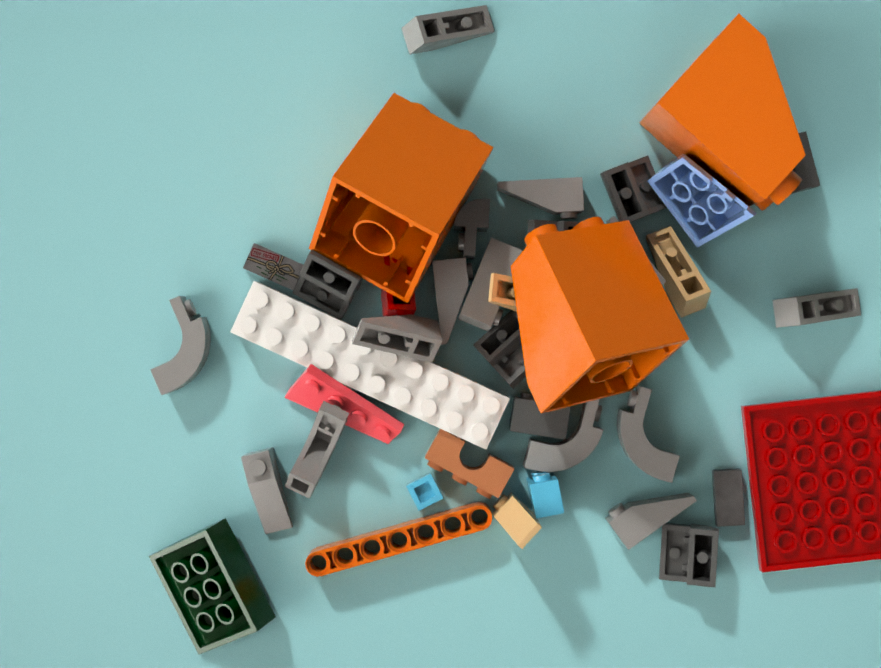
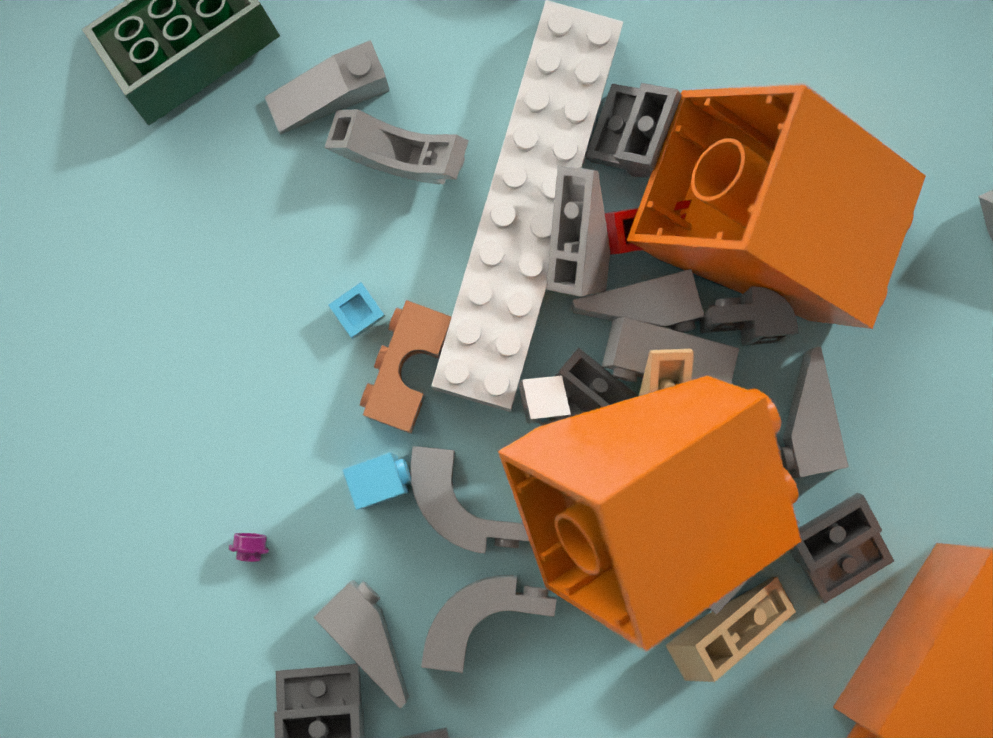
camera: 85 degrees right, 5 degrees down
(273, 266) = (645, 50): flat silver tile -> none
(317, 386) = (457, 200): coral wing -> none
(388, 548) = (270, 268): orange beam -> none
(508, 375) = (544, 399): none -> white tile
(516, 519) = (336, 443): tan slope -> none
(528, 419) = (482, 467): dark grey brick -> none
(573, 585) = (249, 546): none -> magenta plate
(698, 200) = (846, 642): light blue wedge -> none

